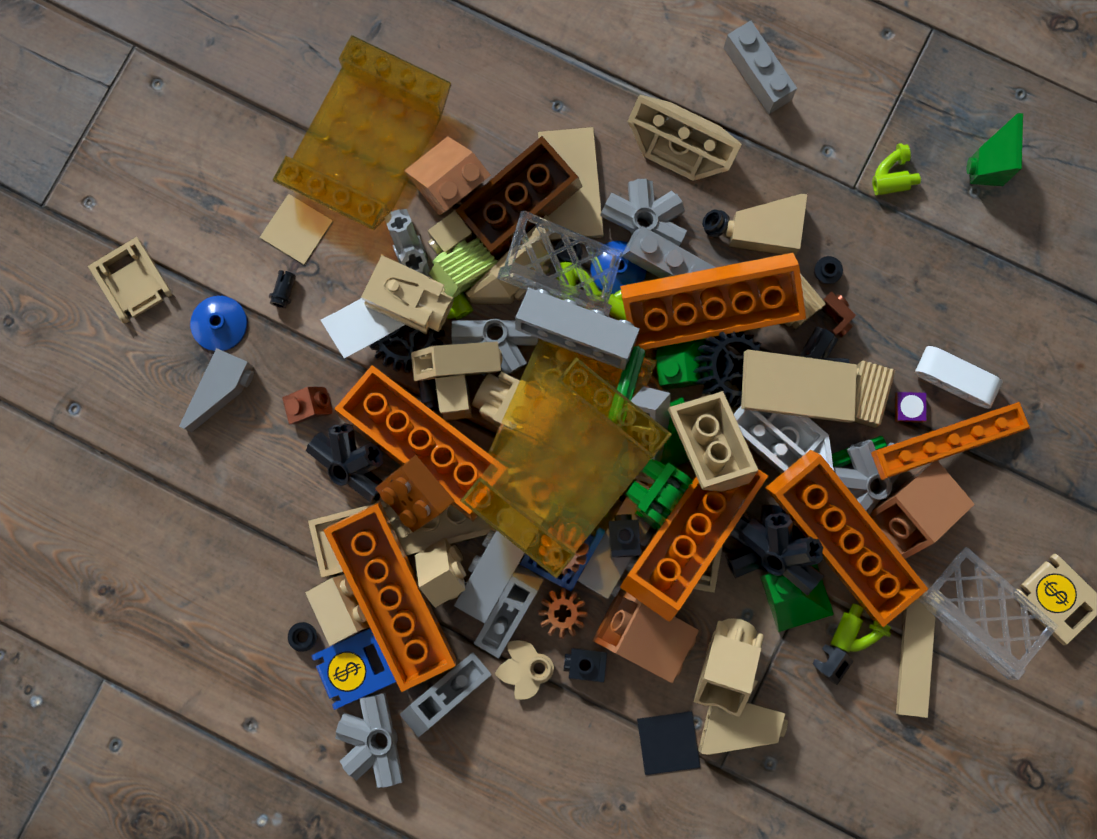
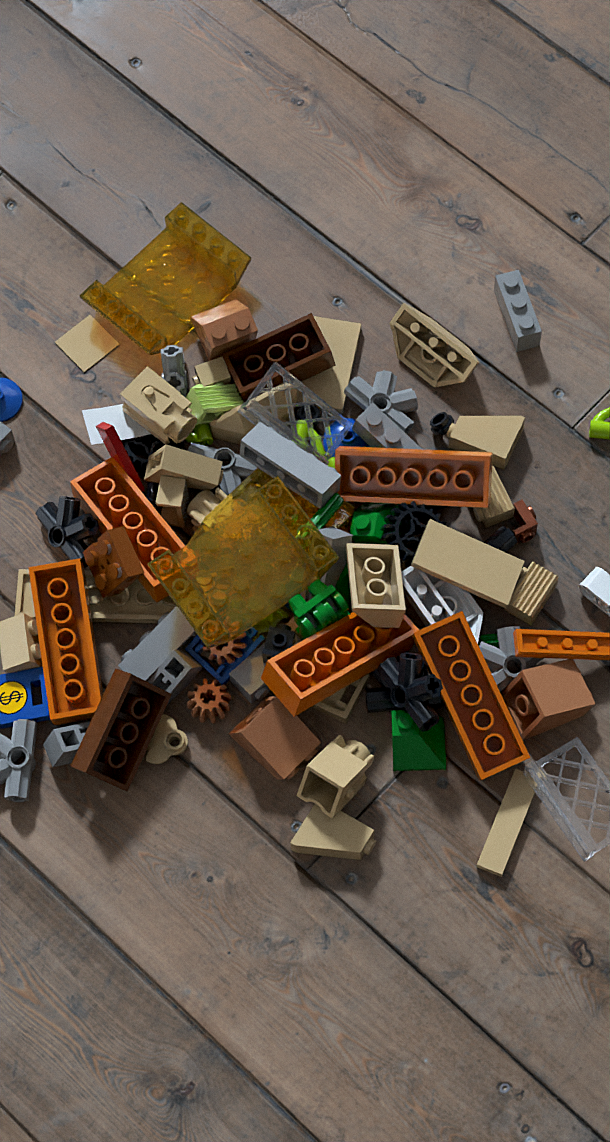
camera: 20 degrees right, 15 degrees down
(282, 289) = (59, 385): black pin -> none
(307, 404) = (49, 478): copper bracket -> none
(379, 361) = (118, 451): none -> red tile
(440, 572) = (115, 634): tan brick -> none
(483, 684) = (121, 729): none -> reddish brown brick
(597, 669) = (217, 756): black brick -> none
(668, 743) = (267, 836): black sticker -> none
(822, 275) = (525, 492): black plate -> none
(835, 666) = (433, 807): black tile -> none
(849, 627) = (449, 788): lime plant -> none
(910, 407) = (566, 615): tile -> none

